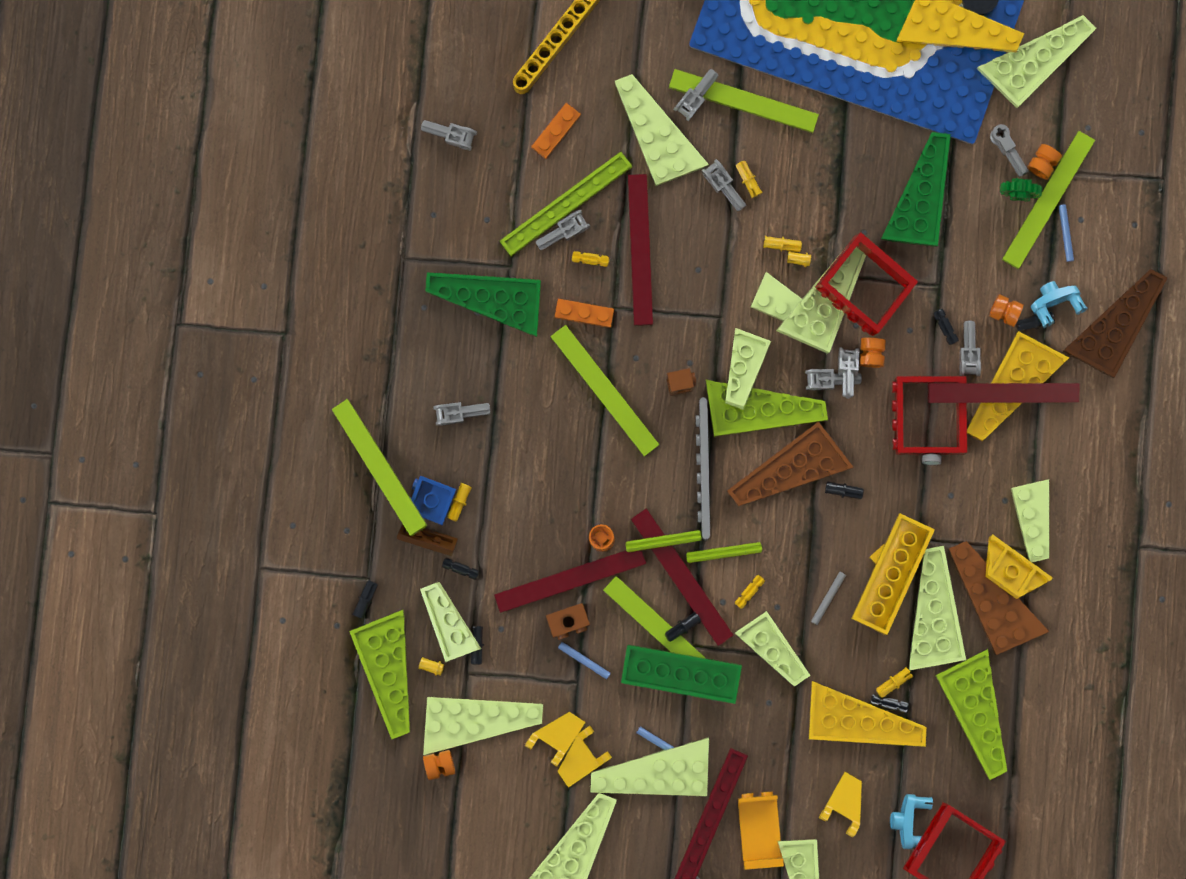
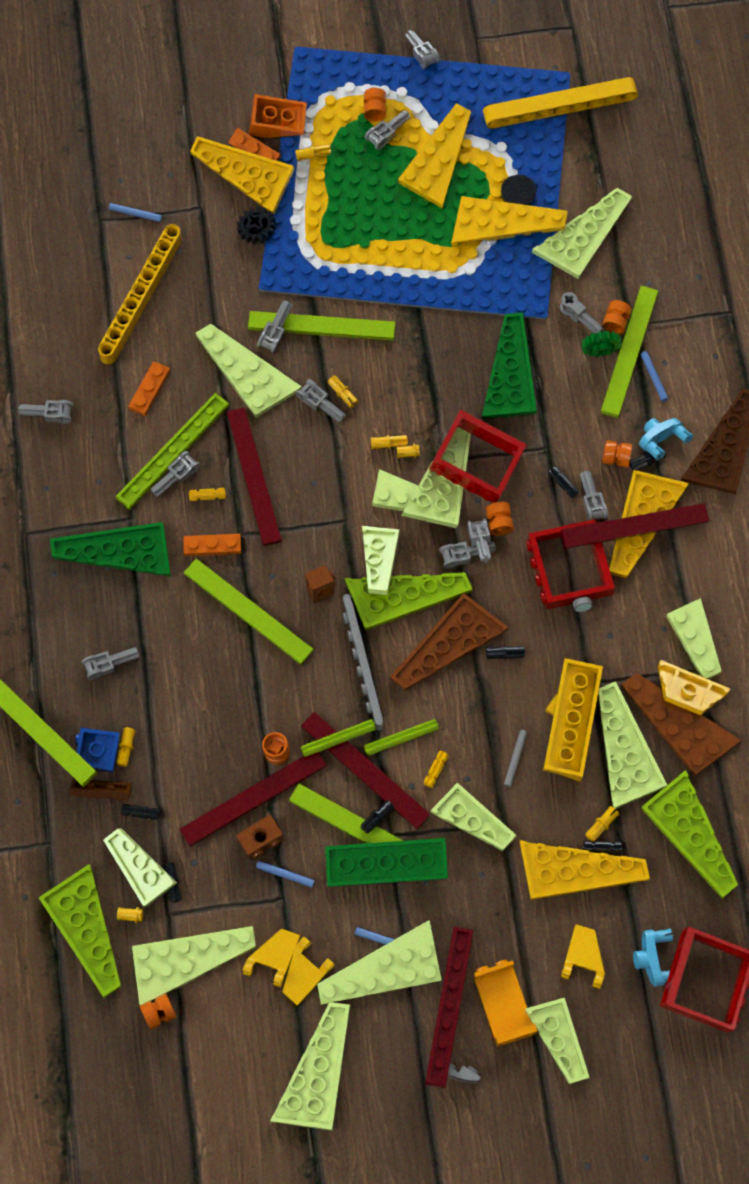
camera: 15 degrees left, 15 degrees down
(365, 599) = (49, 863): black axle -> none

